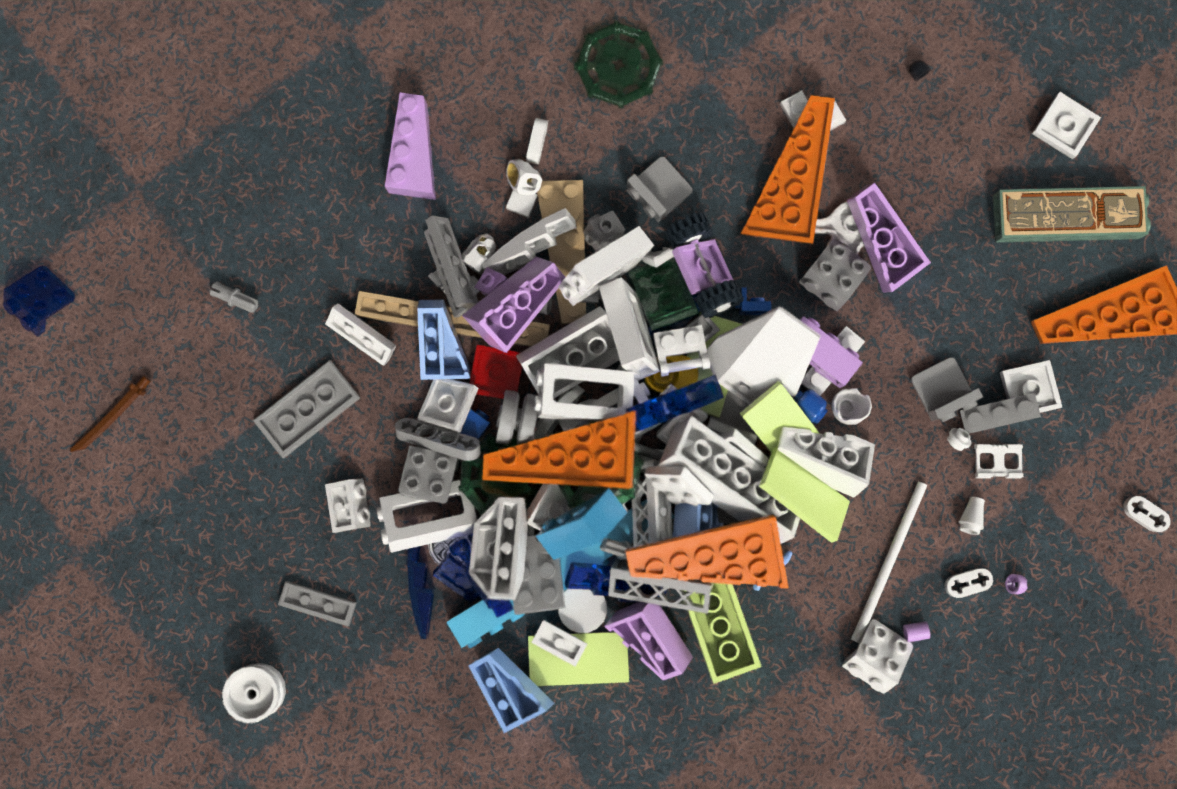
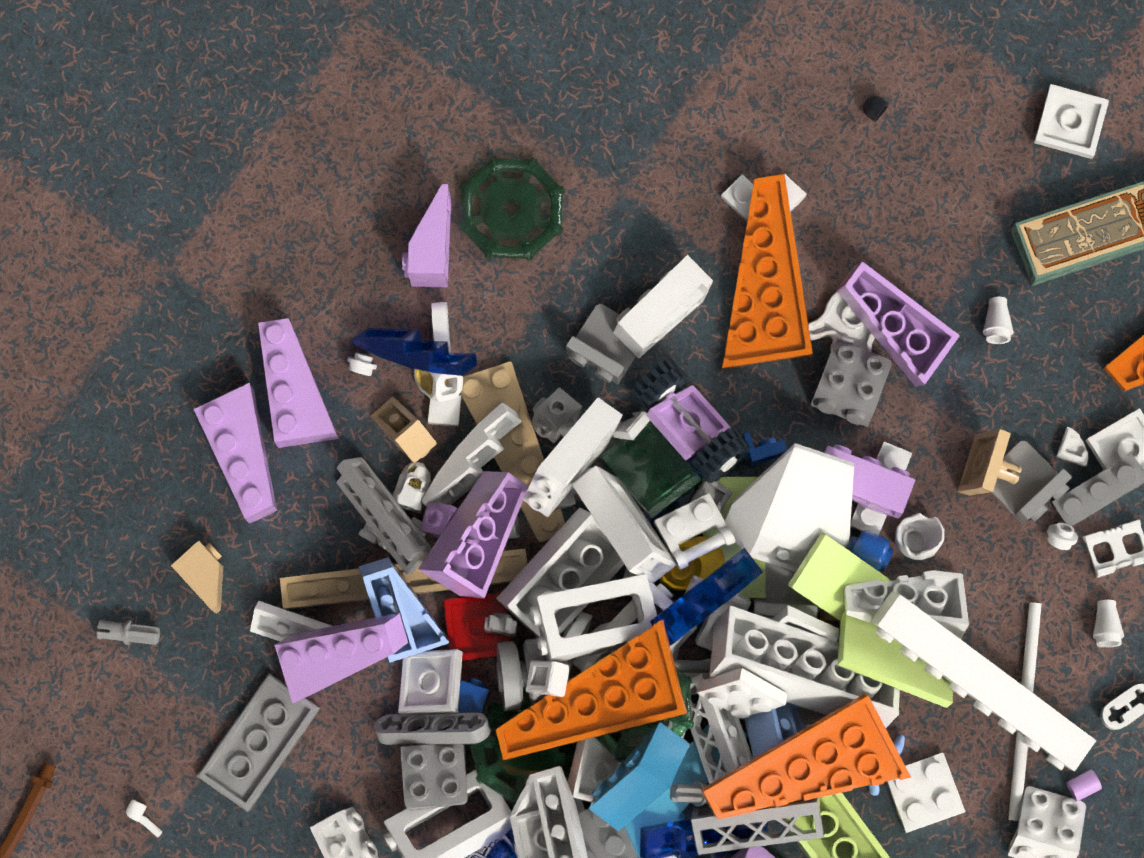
camera: 15 degrees left, 5 degrees down
(199, 432) = (135, 811): none -> white hand
(302, 270) = (202, 573): none -> tan slope
(357, 178) = (238, 444): none -> lavender wedge
(378, 359) = (332, 653): none -> lavender wedge
(469, 148) = (361, 364): none -> white plate
(486, 207) = (404, 429): none -> tan slope
(508, 148) = (408, 350): none -> clear blue slope
(513, 376) = (501, 625): none -> light grey plate
(534, 428) = (547, 678): none -> white slope
(548, 71) = (428, 249): none -> lavender slope
(710, 172) = (663, 307): none -> white wedge
(797, 604) = (927, 795): none -> white plate
(865, 530) = (981, 680): none -> white brick
(920, 367) = (987, 464): none -> tan tile
(961, 263) = (998, 322): none -> white cone
(988, 375) = (1073, 448): none -> white tile

